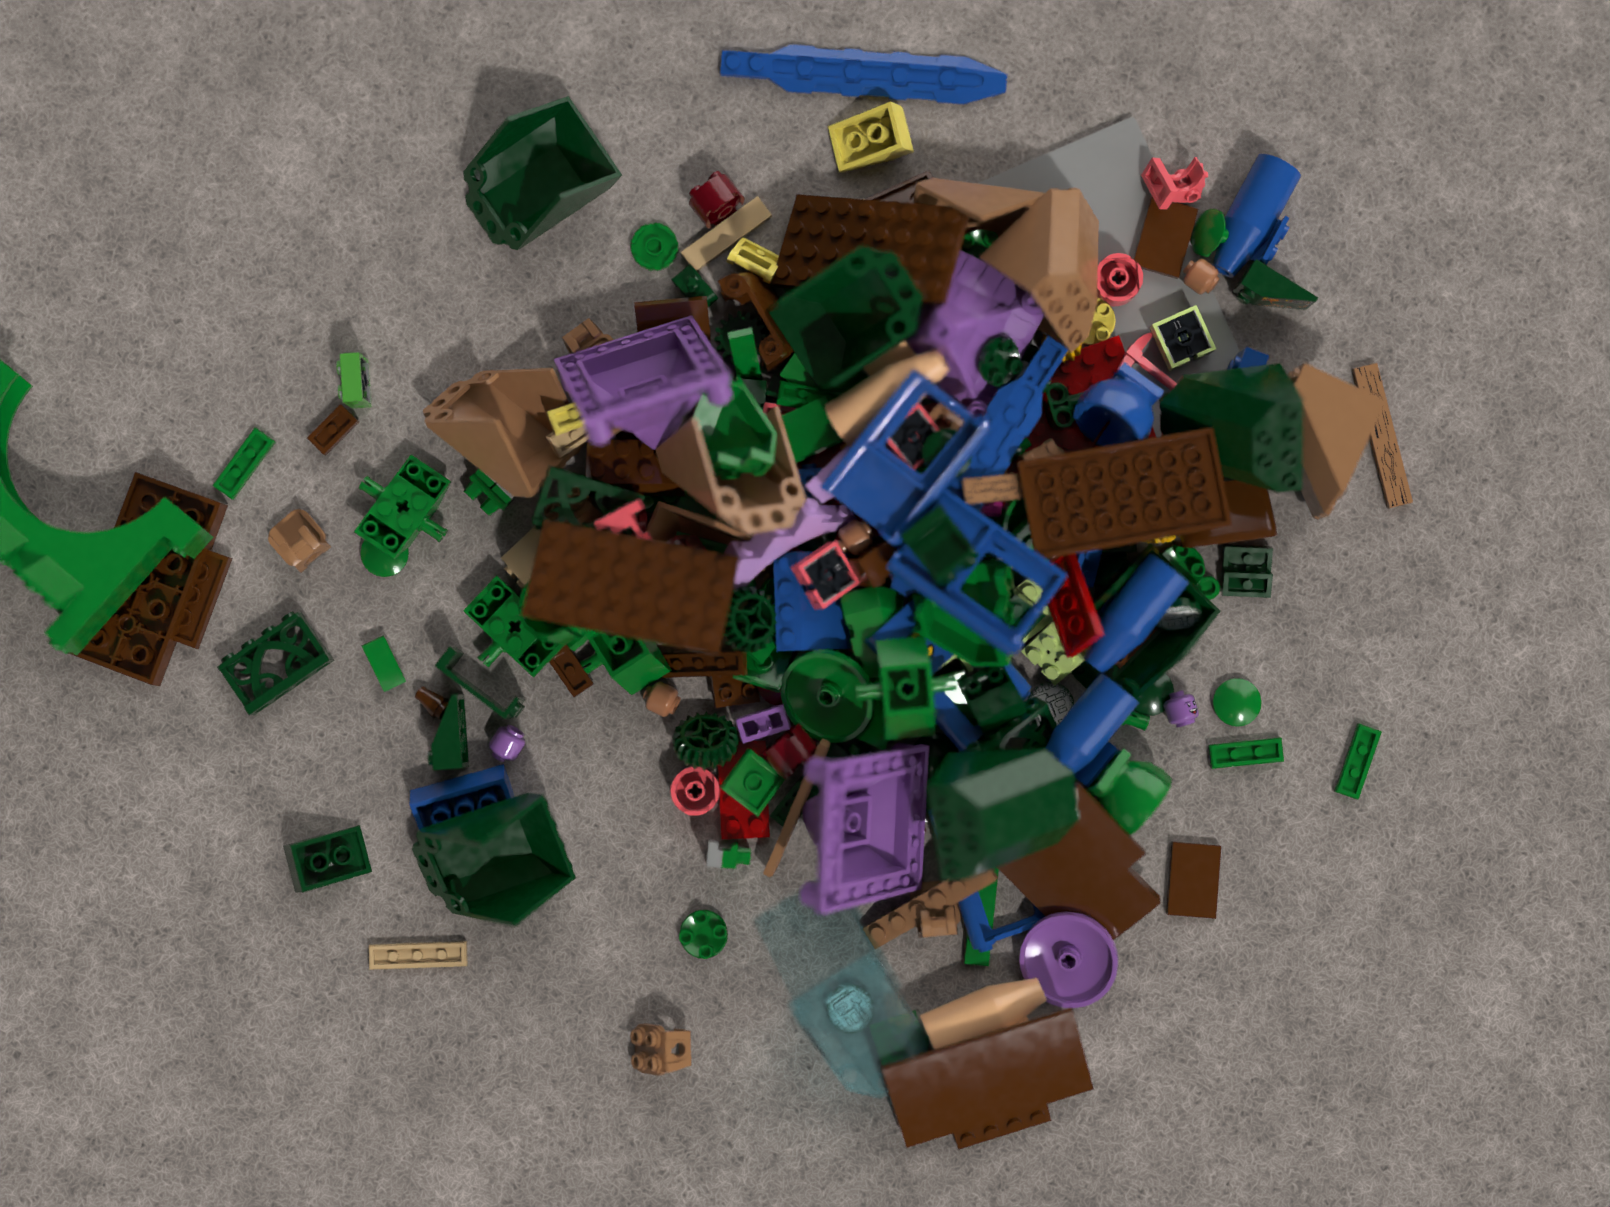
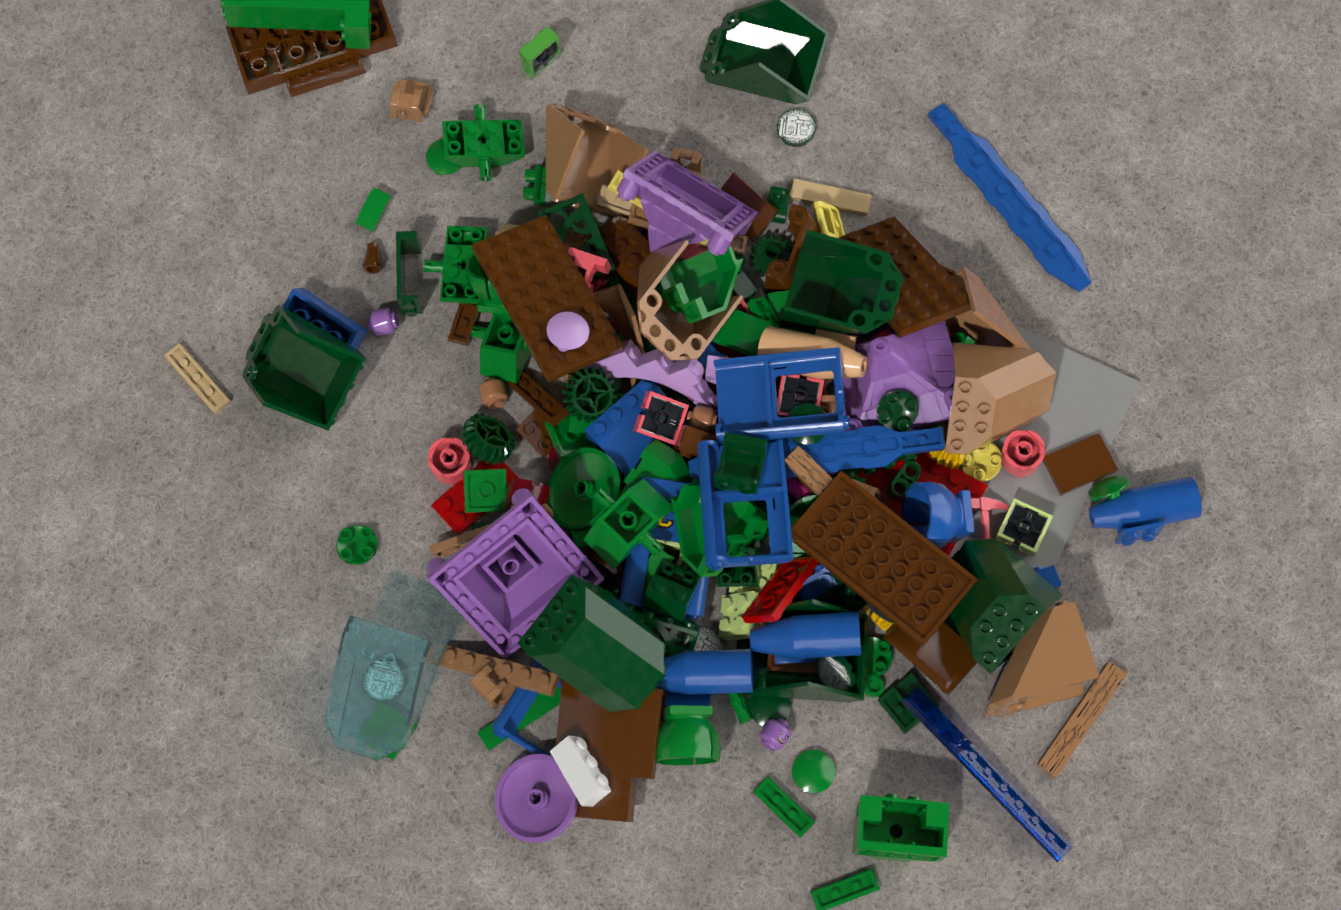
camera: 55 degrees right, 15 degrees down
(244, 463) = (432, 34): green tile -> none
(309, 664) = (319, 165): dark green fence -> none
(327, 859) = (217, 273): dark green slope -> none
(333, 429) = (498, 67): reddish brown plate -> none
(450, 743) = (358, 282): dark green slope -> none
(631, 205) = (796, 127): none -> tile
(654, 1049) = (248, 574): medium nougat piece -> none
(659, 253) = (783, 167): green tile -> none
(686, 597) = (567, 331): none -> lavender dish
(715, 199) = (845, 169): dark red brick -> none
(727, 857) = (423, 516): green hips -> none
(744, 354) = (762, 257): green tile -> none
(763, 723) = (530, 466): medium lavender brick -> none
(871, 137) = (973, 232): light yellow slope -> none
(983, 1012) = (450, 771): light nougat piece -> none
(989, 1082) = (406, 808): reddish brown slope -> none
(1083, 906) = (581, 770): none -> white brick
(1181, 187) = (1117, 442): coral tile -> none
(1193, 880) = (665, 843): reddish brown tile -> none
(1201, 276) = (1075, 506): nougat head -> none
(1269, 288) = (1107, 557): dark green slope -> none
(1363, 559) = (987, 774): none -> clear blue plate
(1374, 665) = (919, 823): none -> green brick

